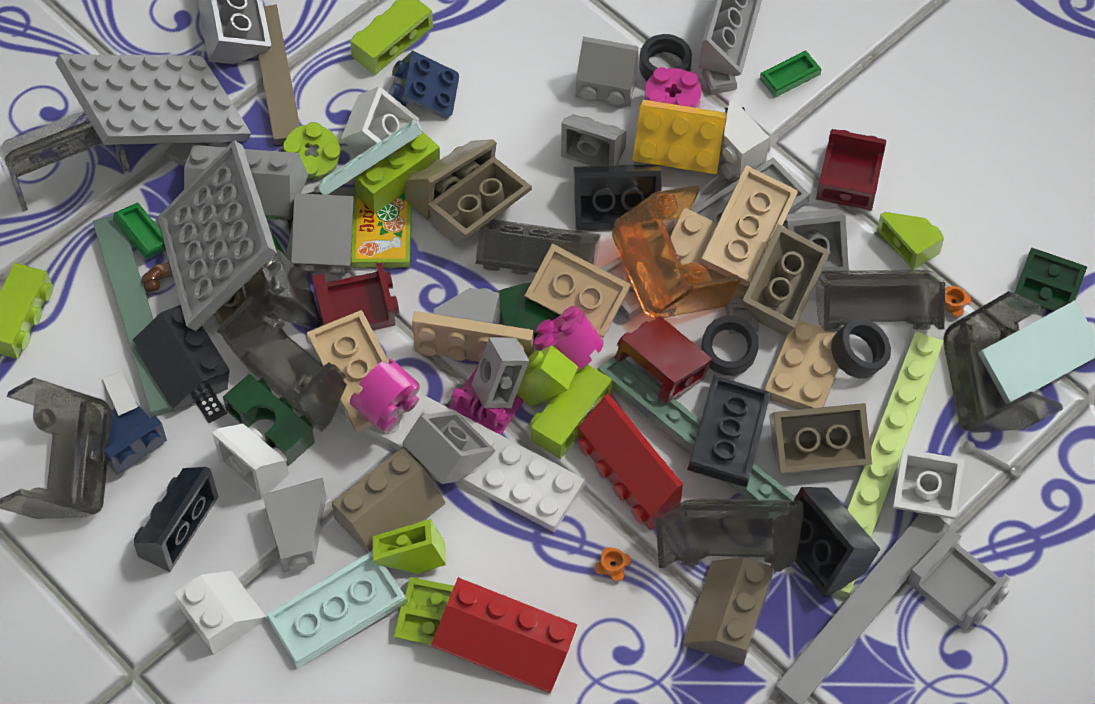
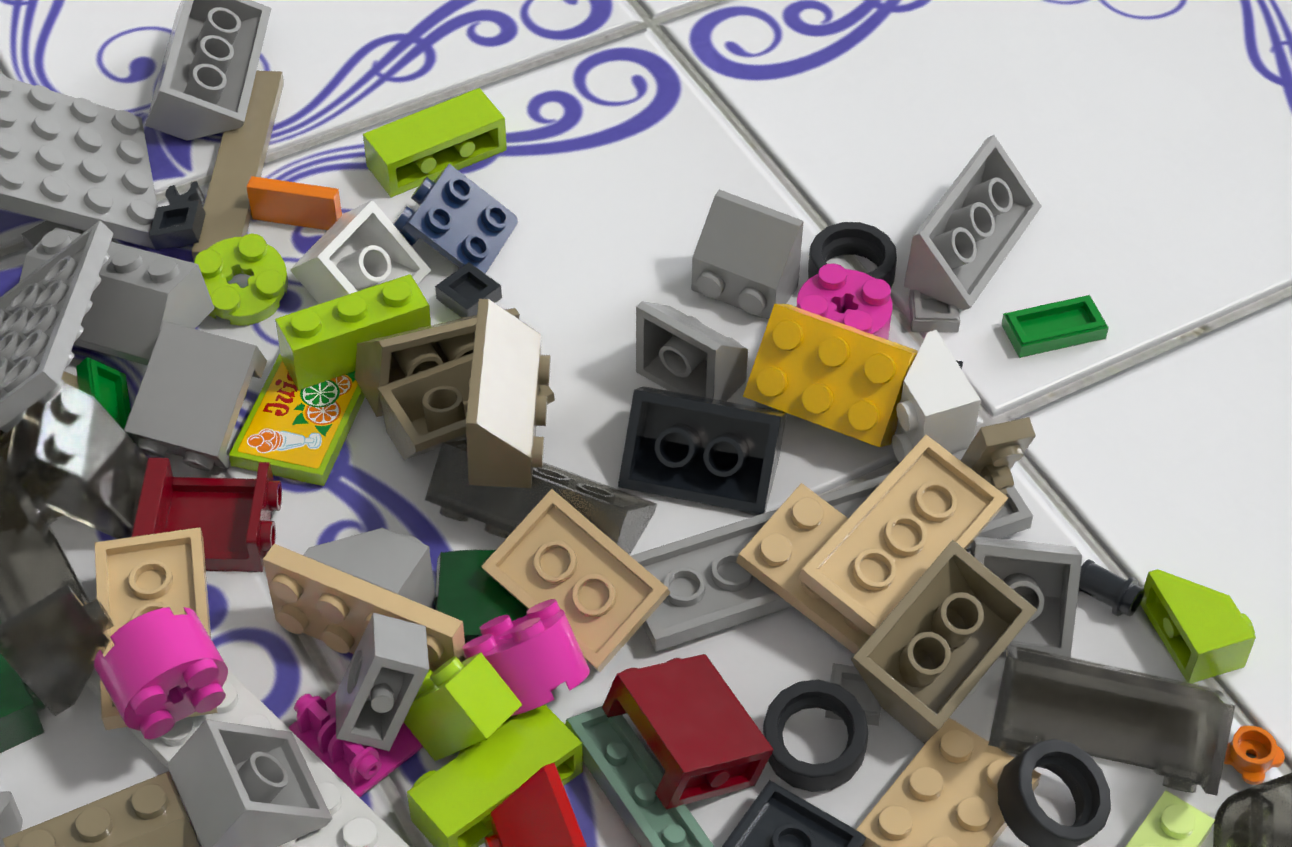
camera: 15 degrees right, 10 degrees down
(259, 121) = (180, 221): none -> black plate
(323, 94) = (293, 203): none -> orange tile
(370, 157) = (261, 316): light aqua tile -> none
(449, 129) = (464, 289): none -> black plate
(511, 199) = (505, 400): none -> slope
(653, 265) = (721, 592): clear orange windscreen -> none
(784, 165) = (997, 450): none -> dark tan plate
(851, 169) = (1118, 492): dark red panel -> none
(862, 227) = (1111, 589): none -> black pin

